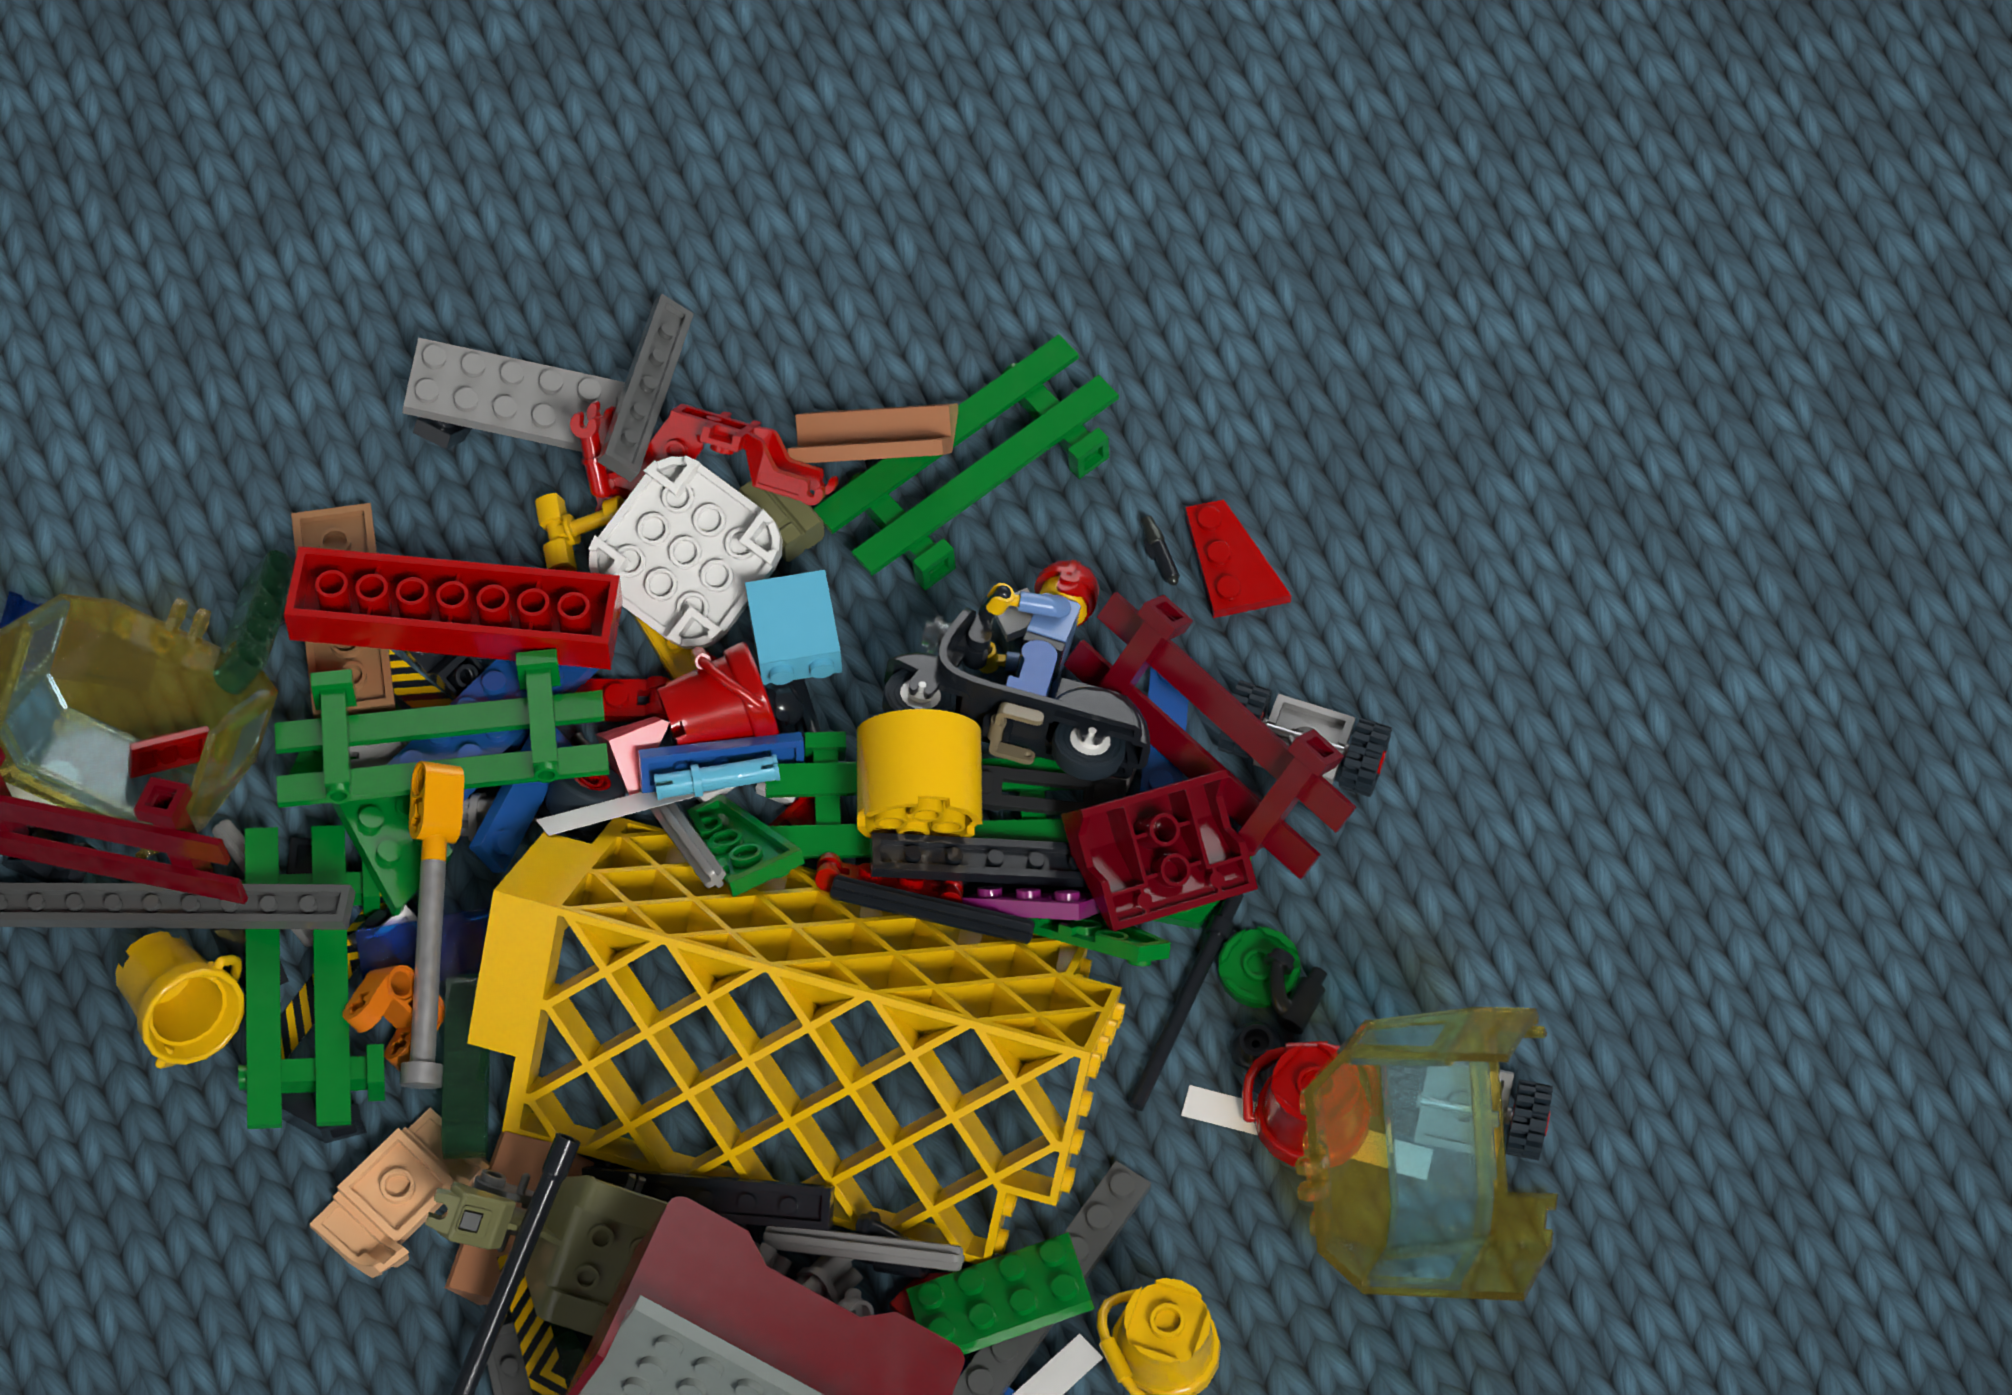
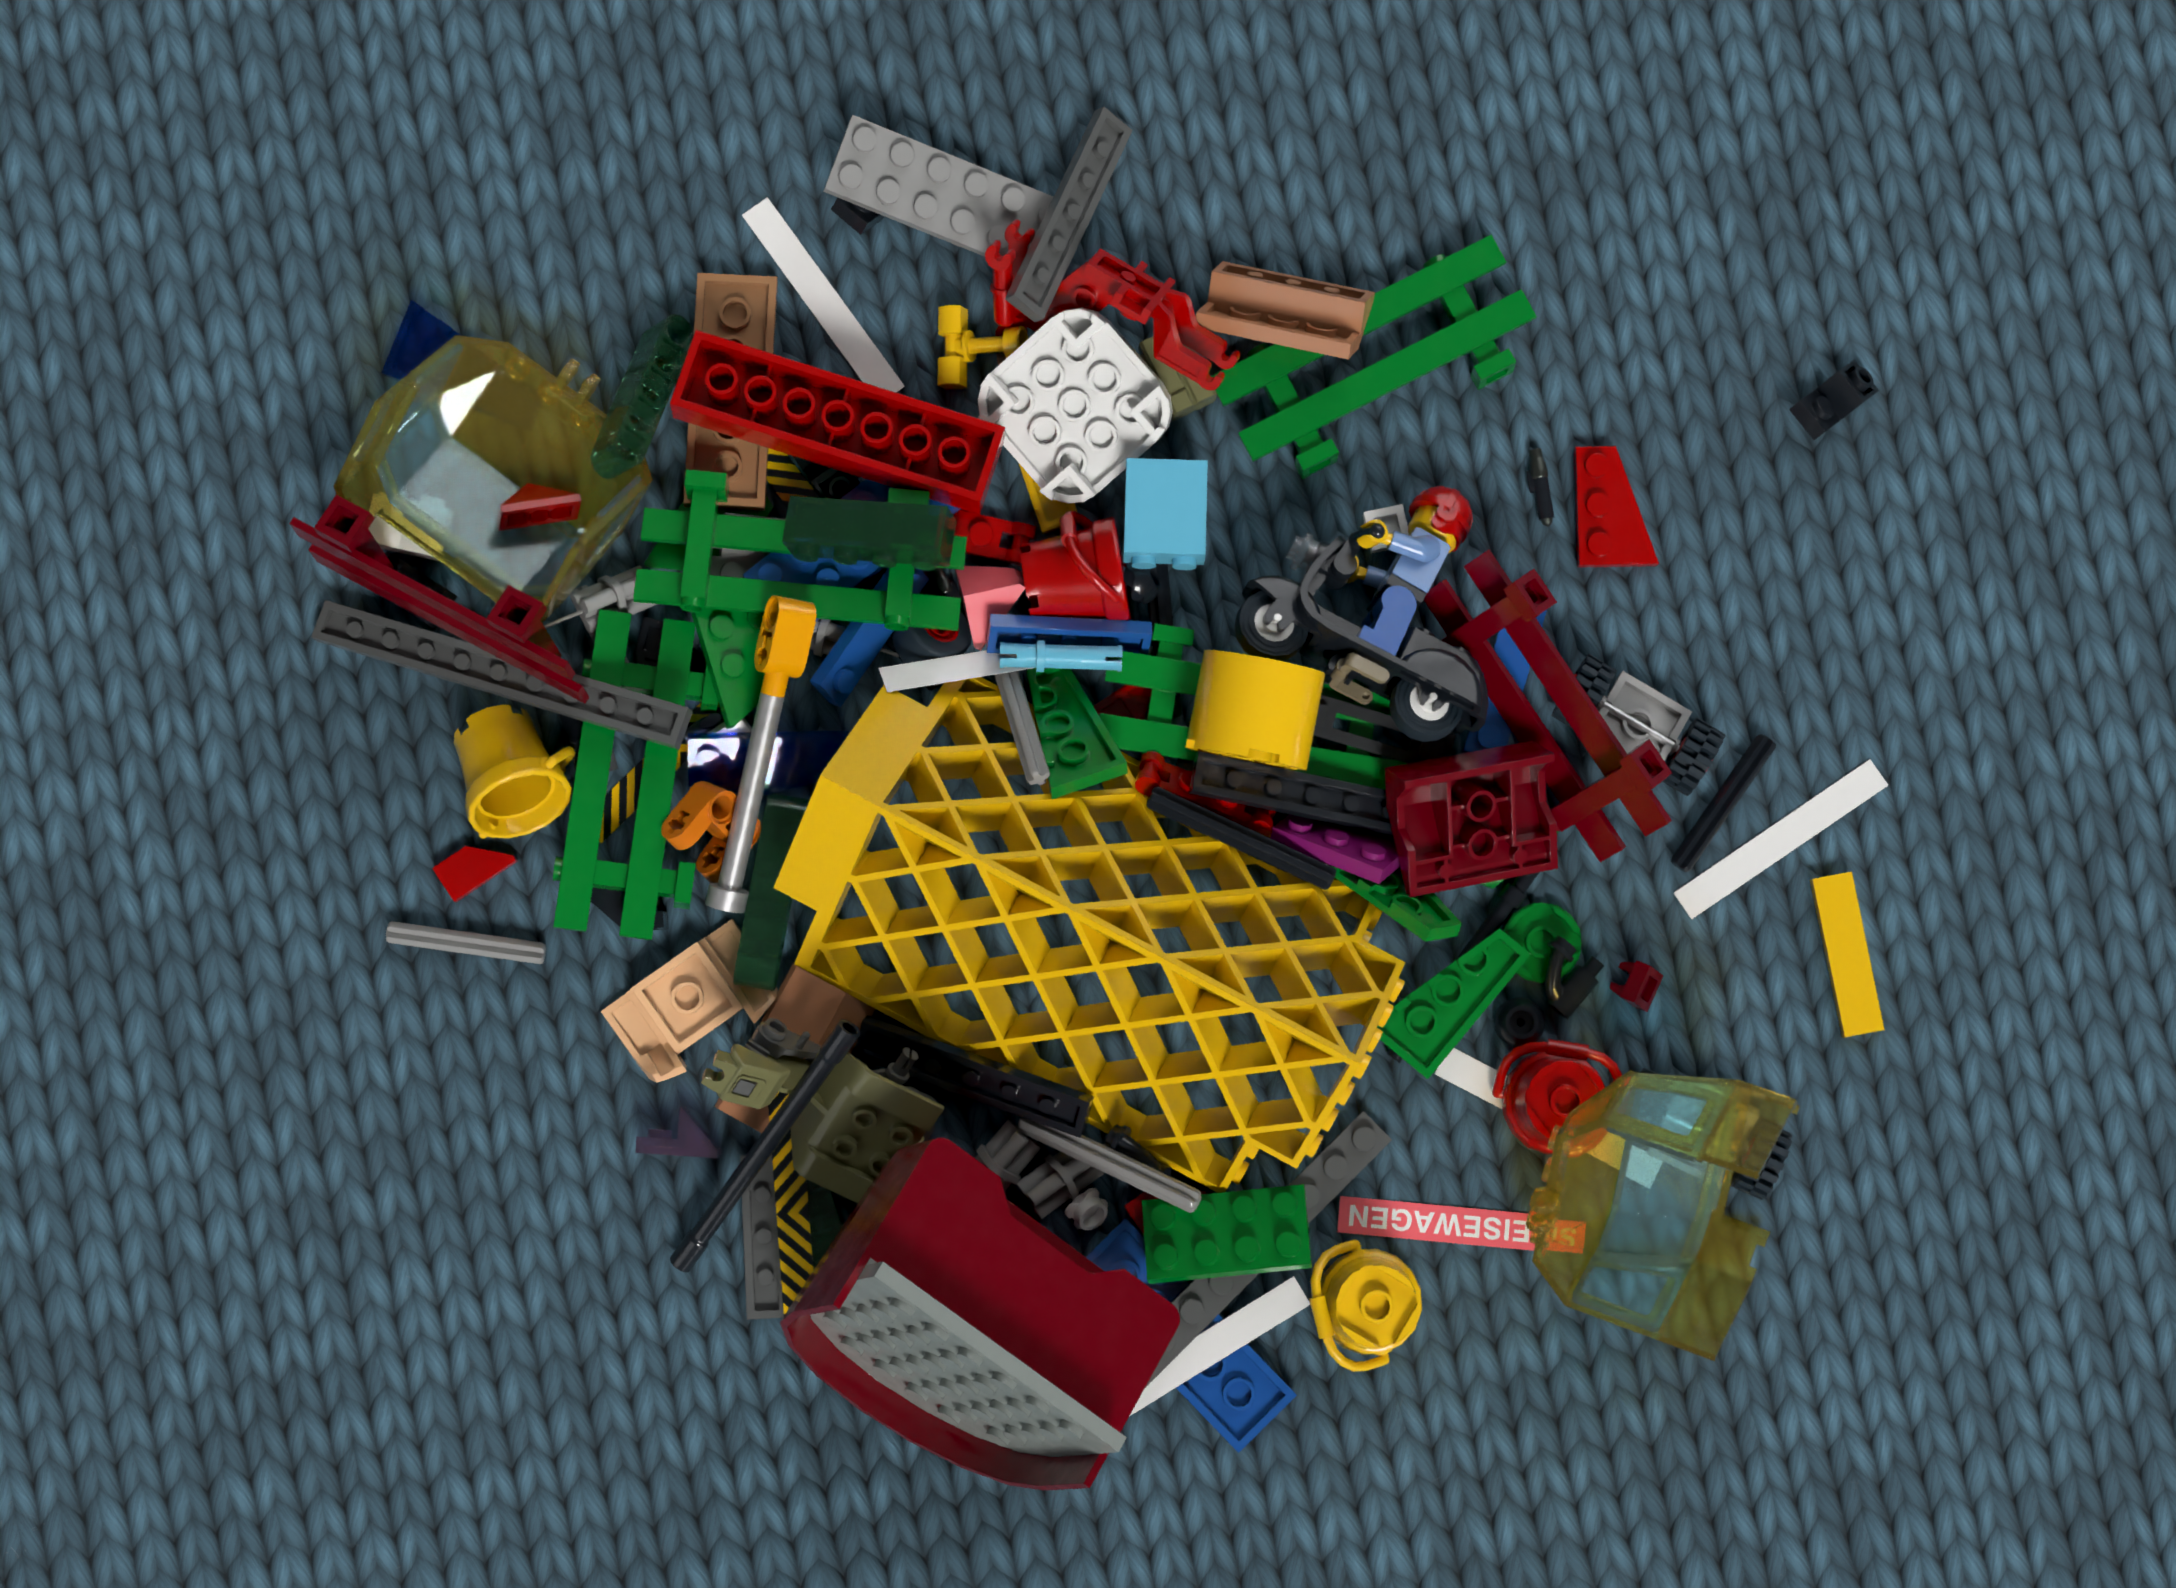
camera: 10 degrees right, 20 degrees up
(153, 1111) = (471, 869): none -> red tile
(158, 1183) = (465, 942): none -> light grey axle
(256, 815) = (608, 594): none -> light grey piece
(403, 505) = (820, 297): none -> white sticker
(425, 1332) = (691, 1140): none -> clear purple slope
(503, 690) = (869, 532): none -> clear green brick
(1172, 1046) = (1444, 1008): none -> green wing
(1217, 1259) = (1434, 1223): none -> coral sticker
(1367, 985) = (1640, 986): none -> dark red tile
(1408, 801) = (1723, 803): none -> black axle
(1425, 419) = (1834, 399): none -> black slope
(1474, 826) = (1780, 839): none -> white sticker
(1567, 917) = (1847, 954): none -> yellow tile

